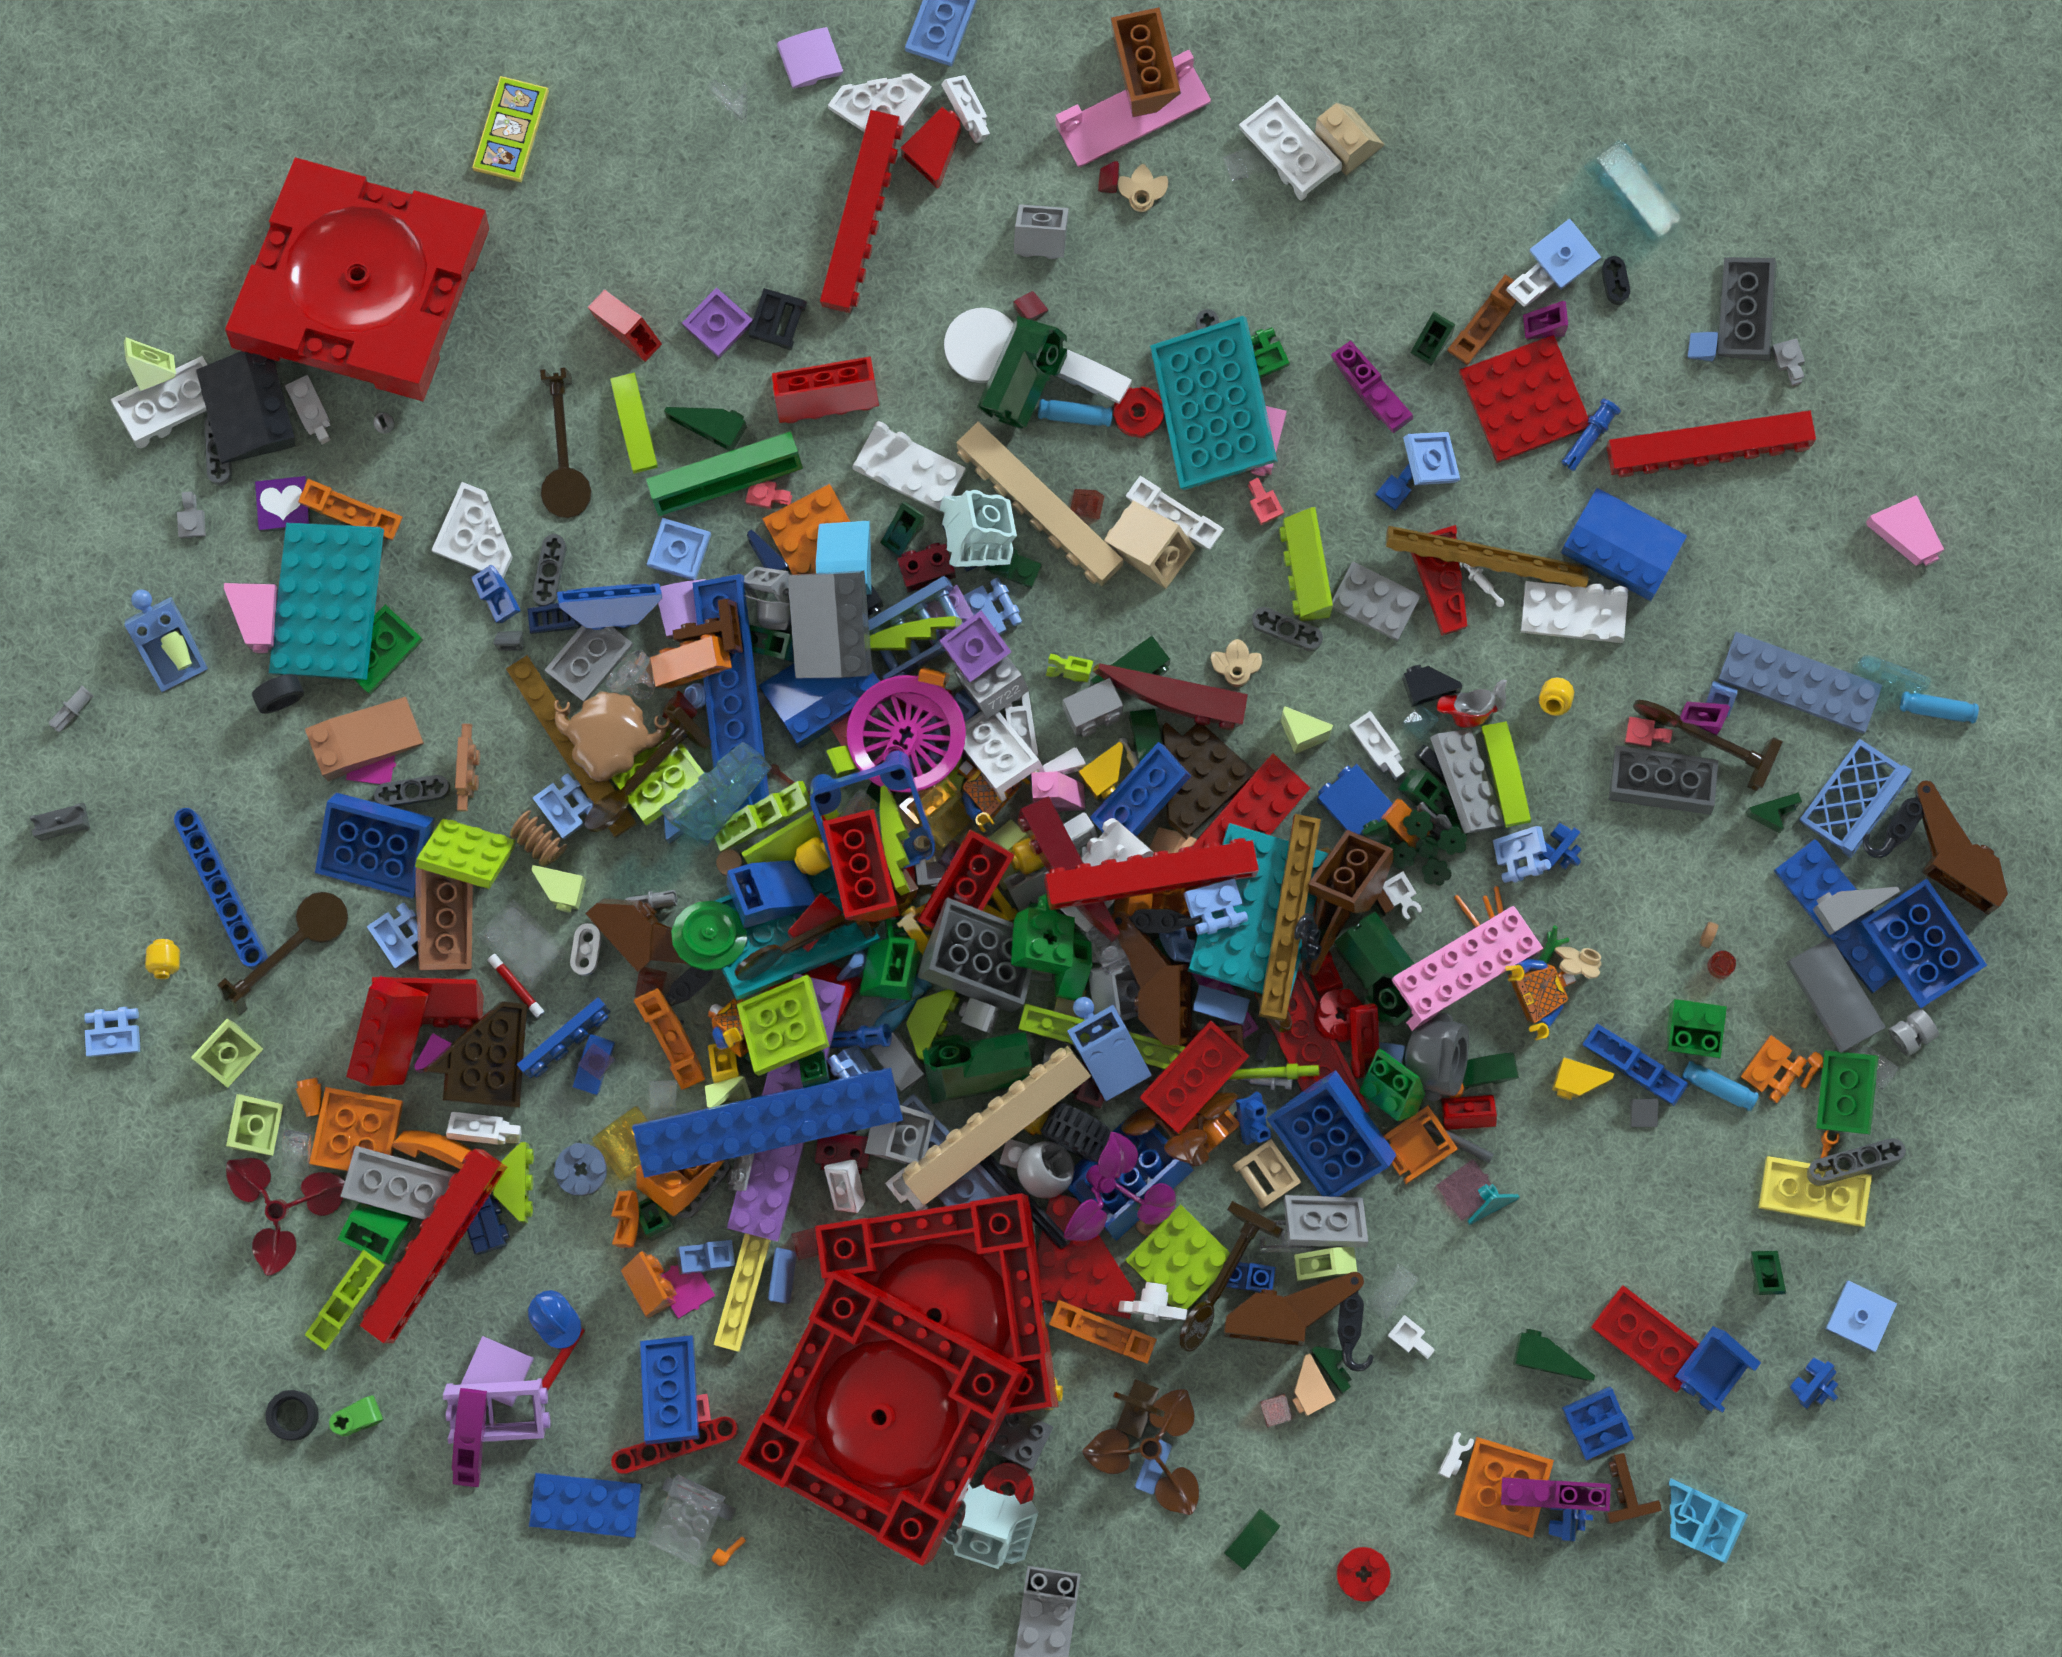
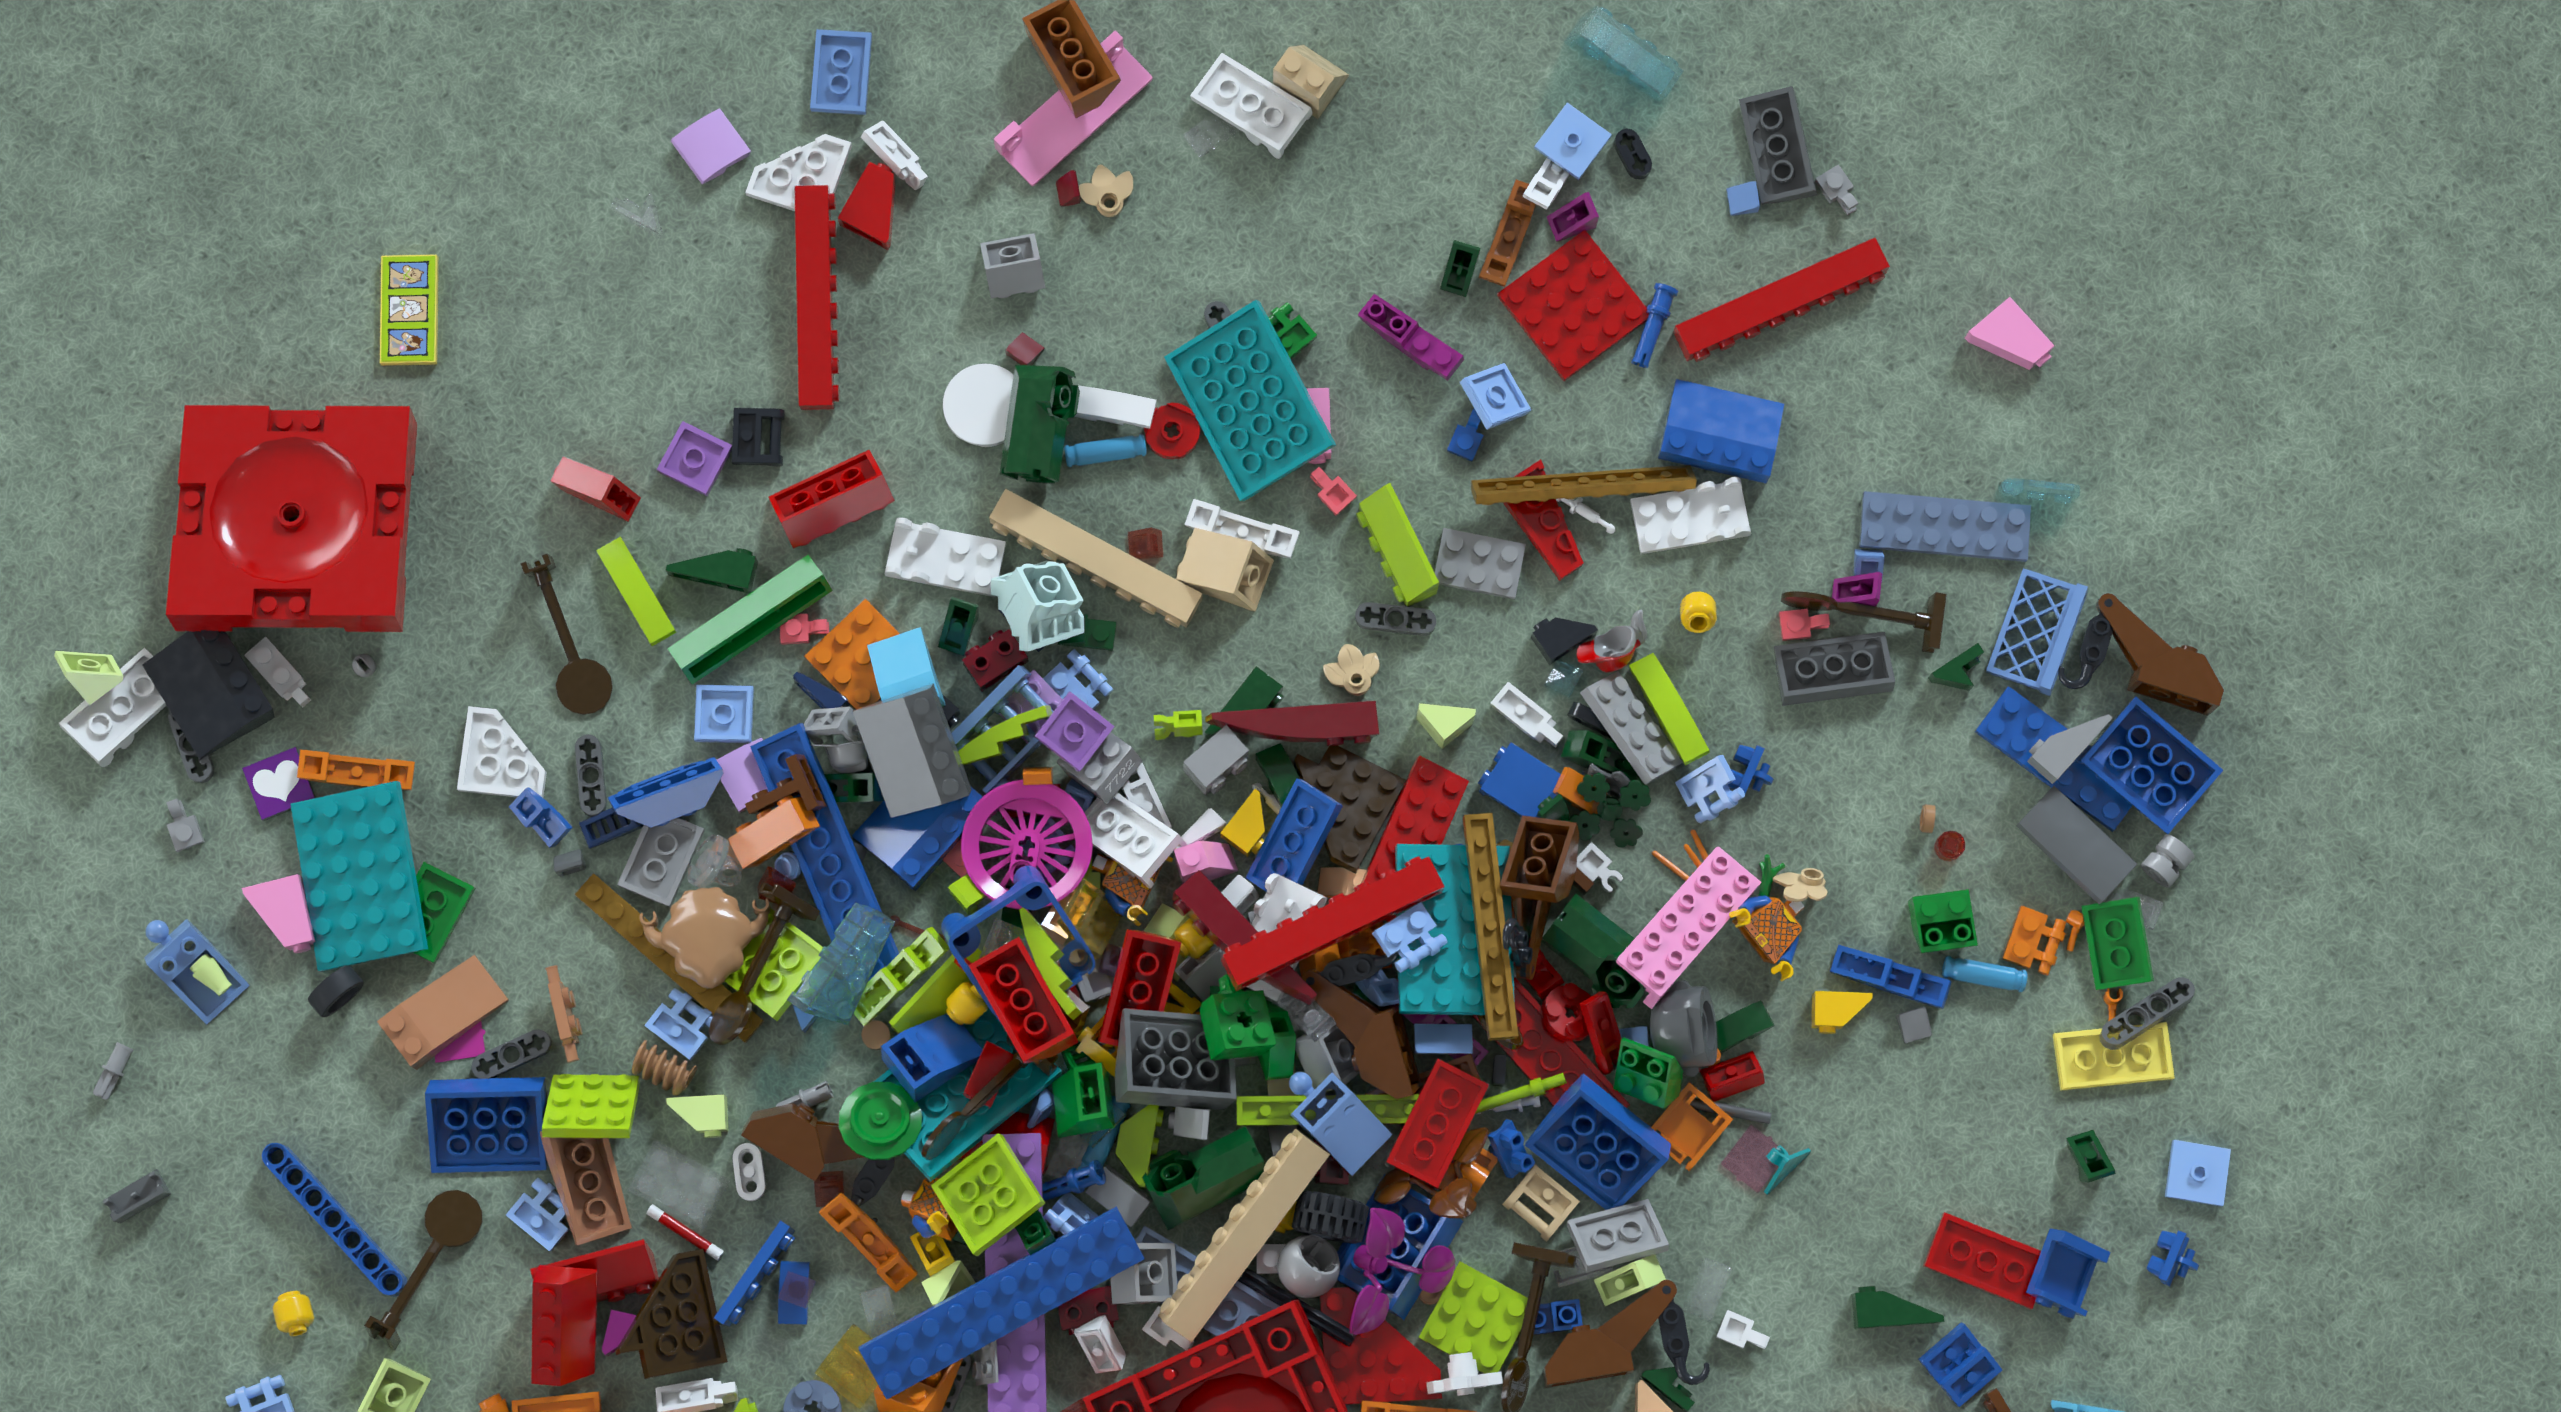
camera: 25 degrees left, 0 degrees up
(1939, 707) = (2096, 512): dark azure axle -> none

